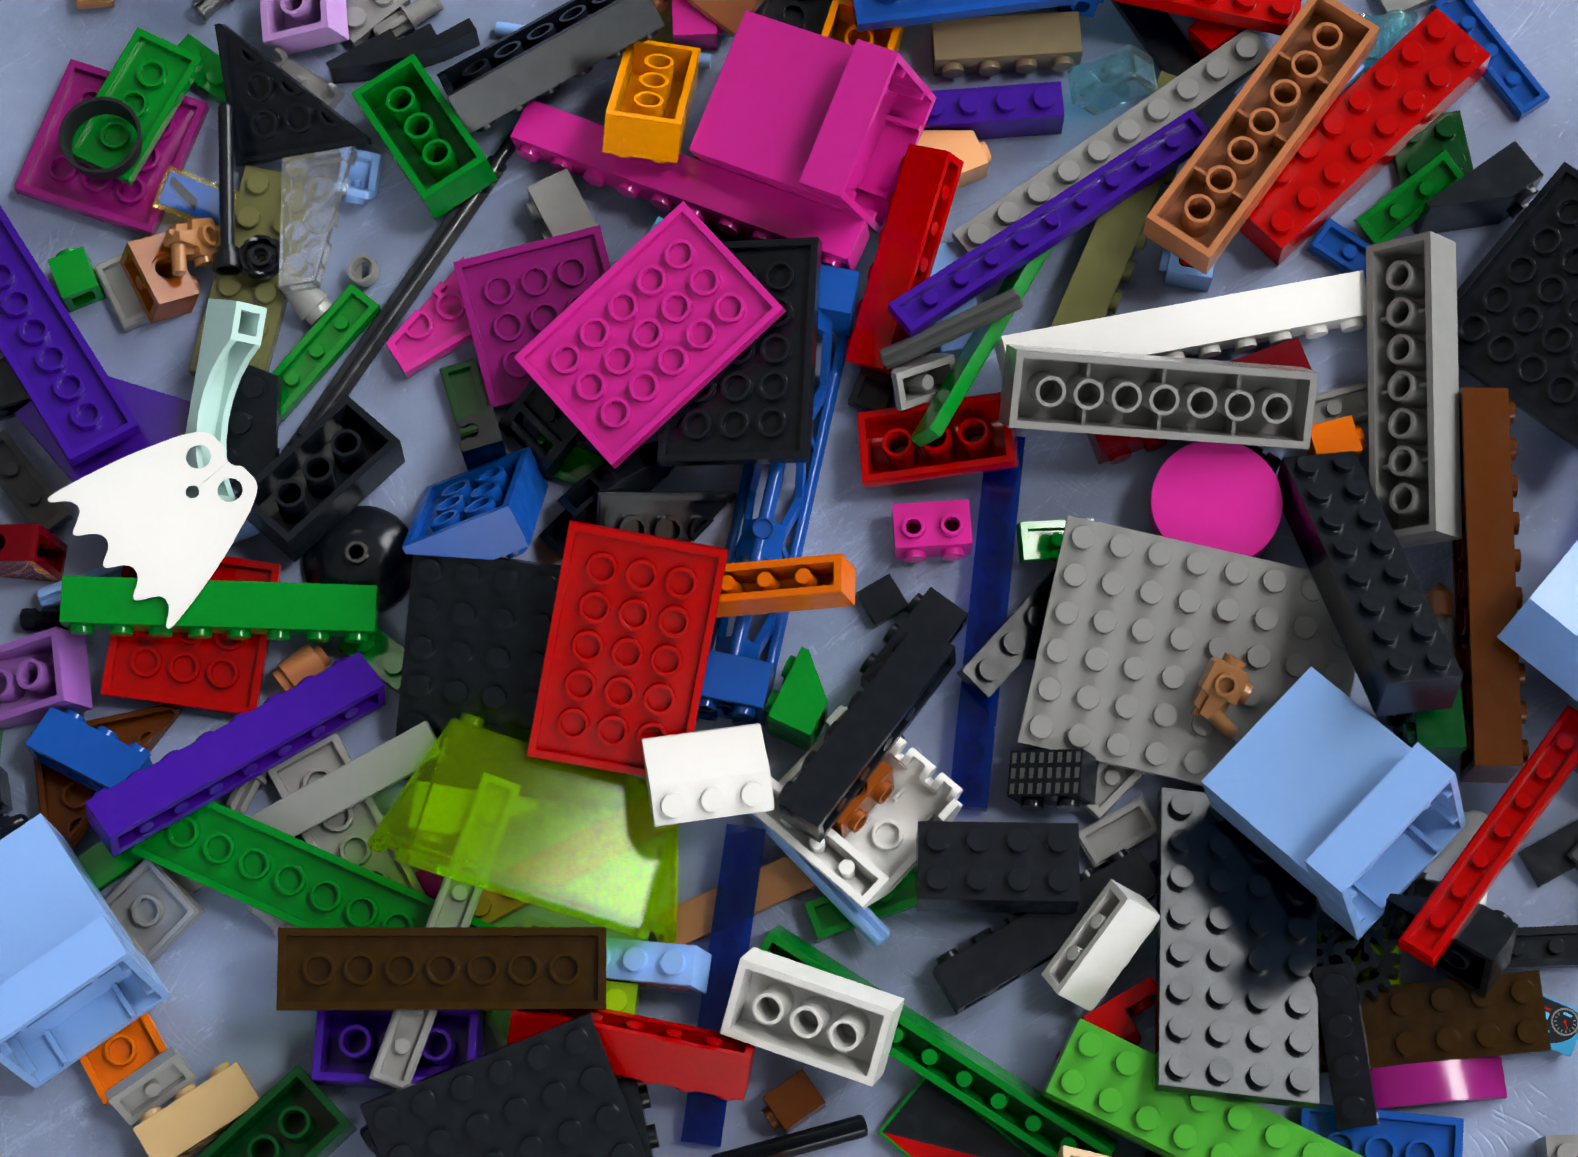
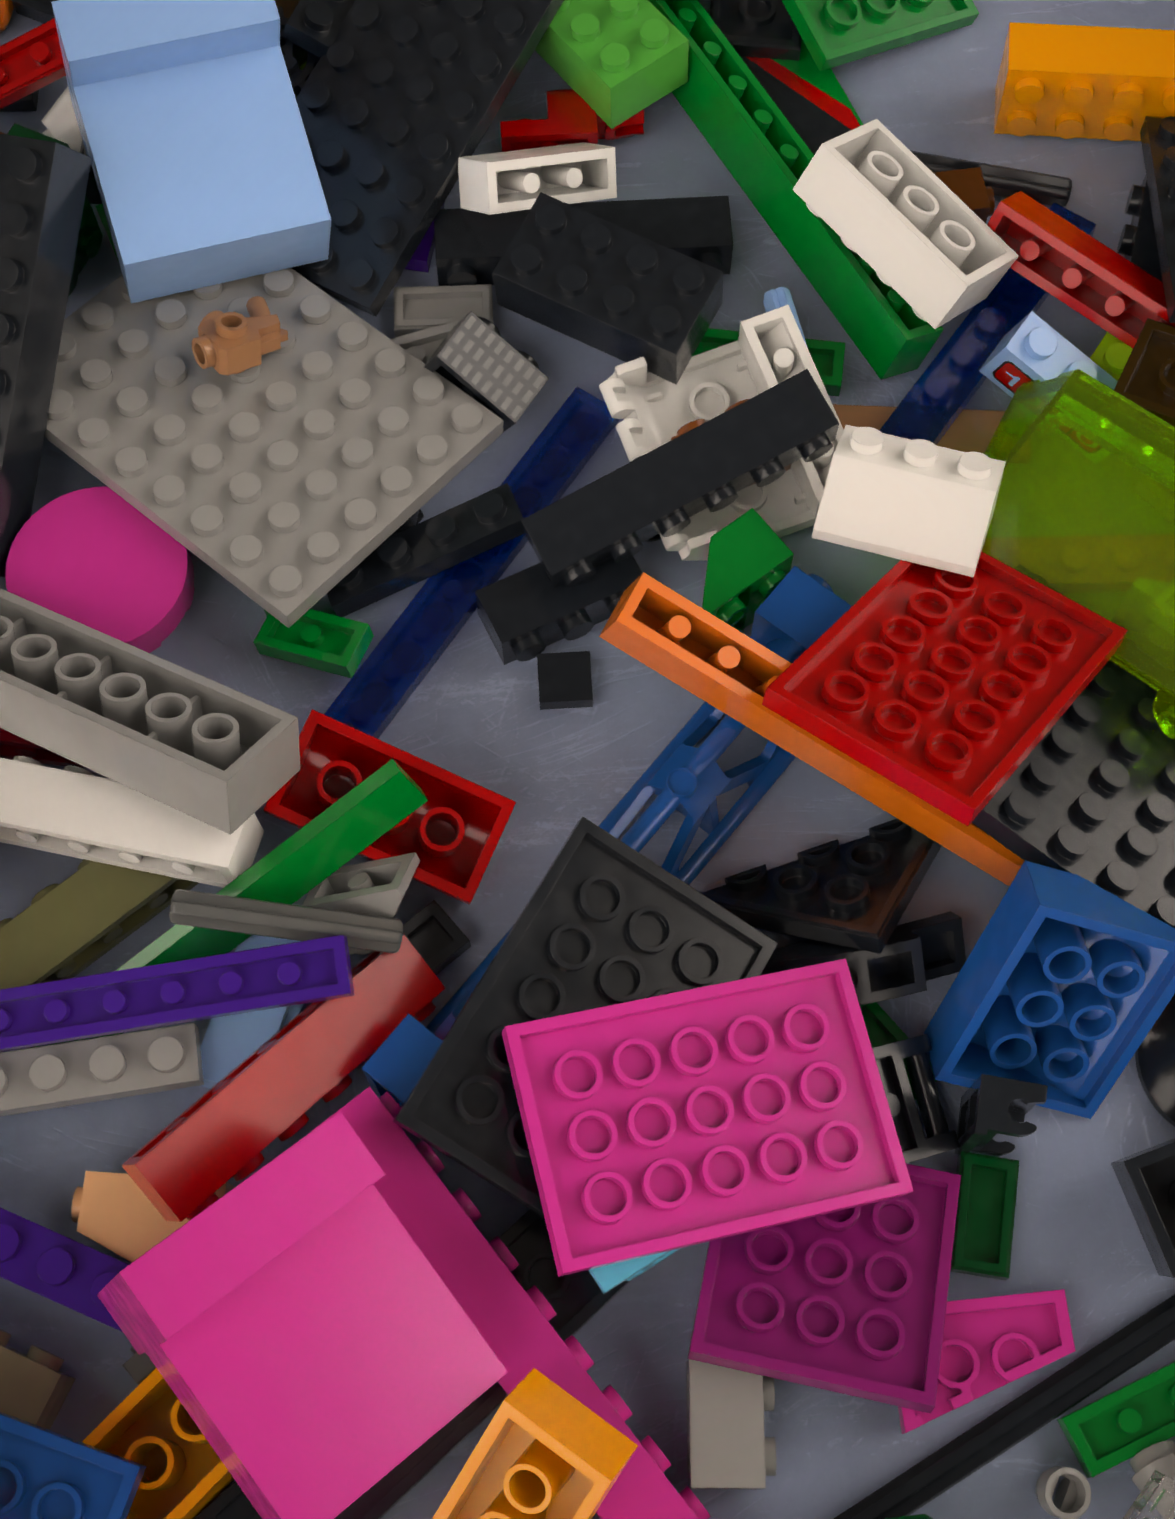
camera: 155 degrees left, 5 degrees down
(931, 530) = (457, 725): dark pink brick -> none

